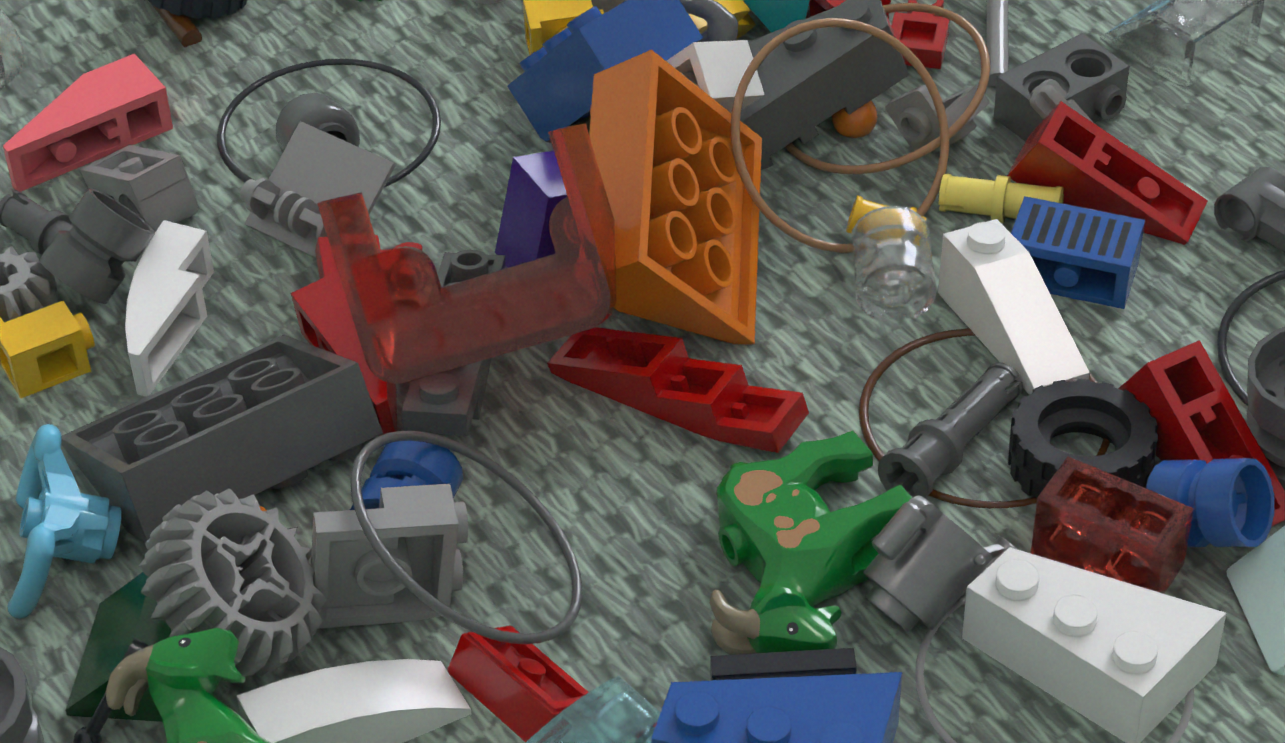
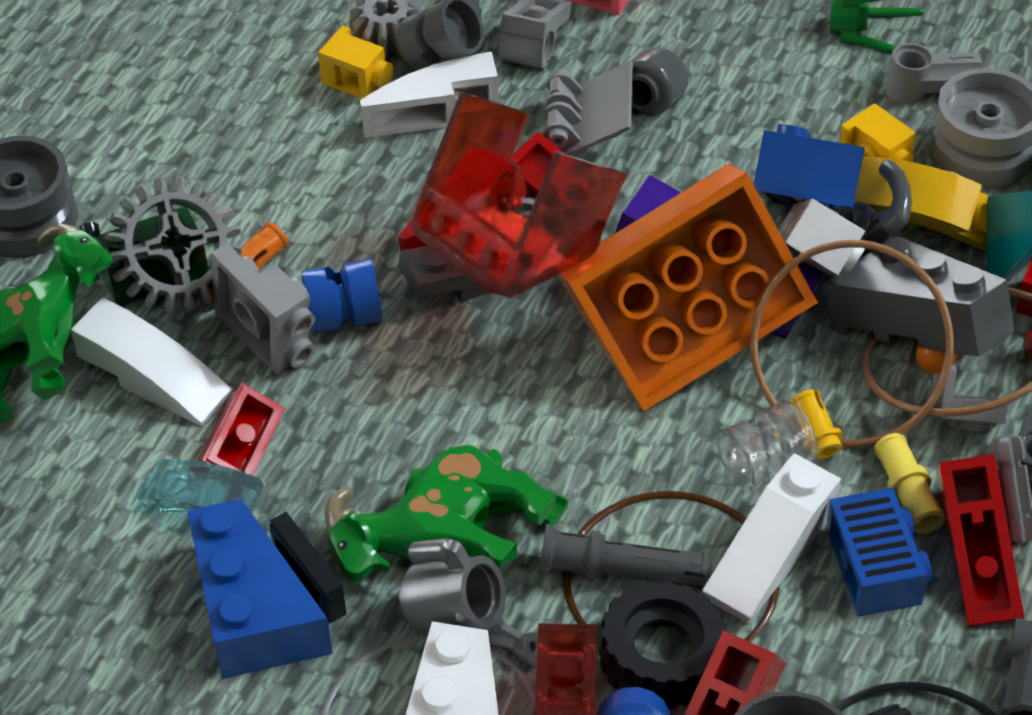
camera: 60 degrees right, 5 degrees up
(57, 519) = (207, 149): medium azure piece -> none
(221, 143) = (770, 83): black piece -> none
(231, 427) = (328, 184): dark grey slope -> none
(422, 594) = (220, 378): dark grey piece -> none
(695, 394) = (555, 390): red slope -> none

